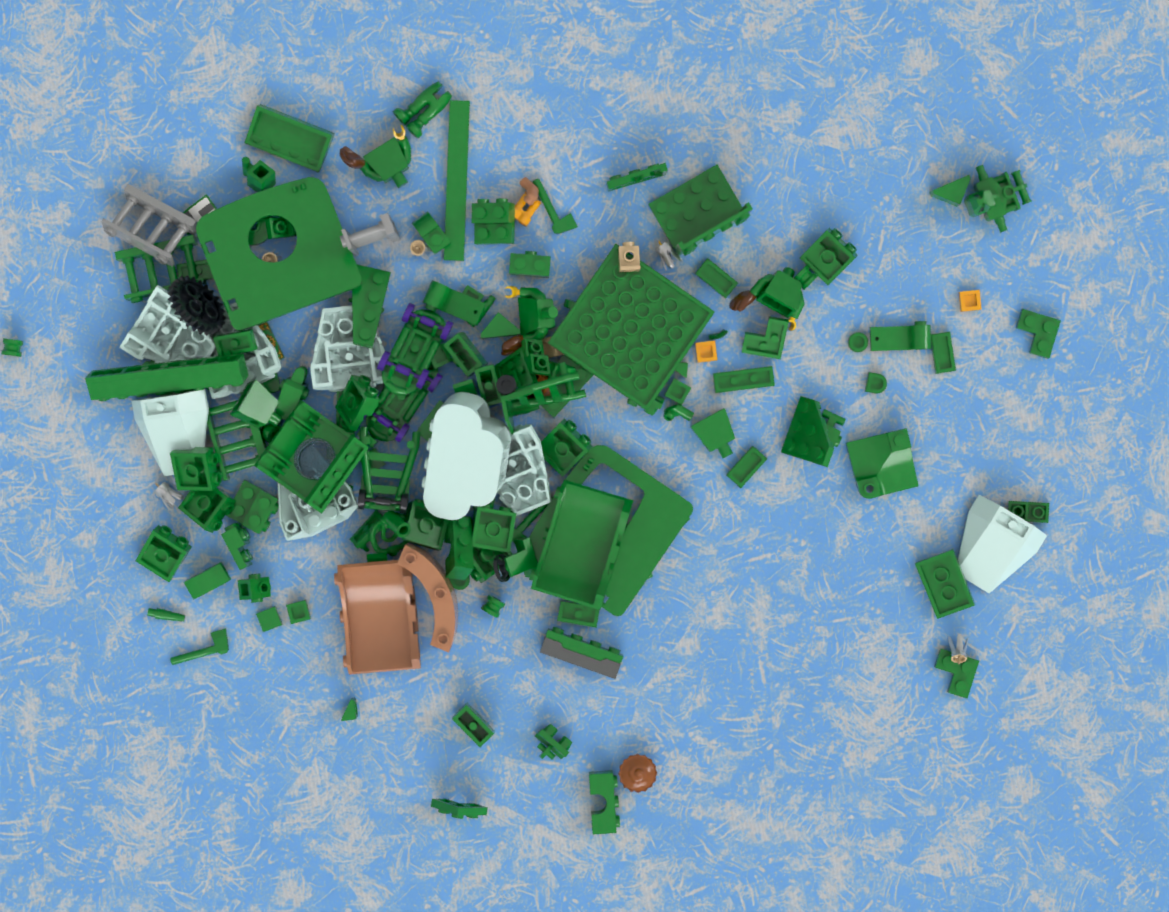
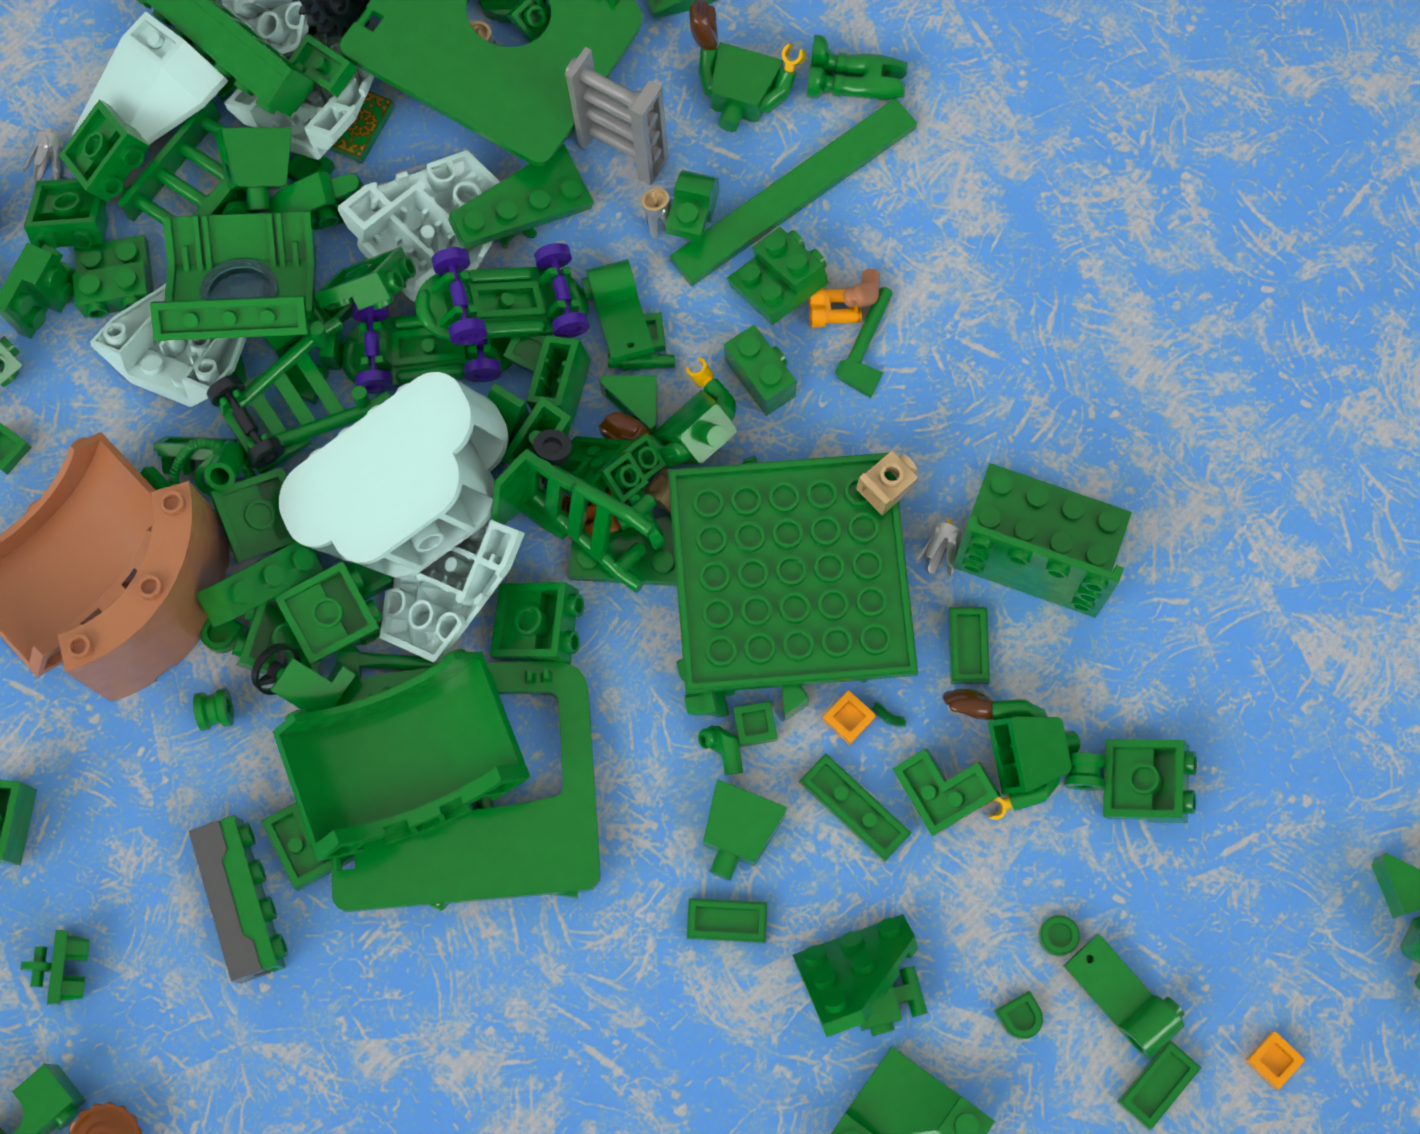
camera: 55 degrees right, 15 degrees down
(637, 176) = (1020, 418): green wing -> none

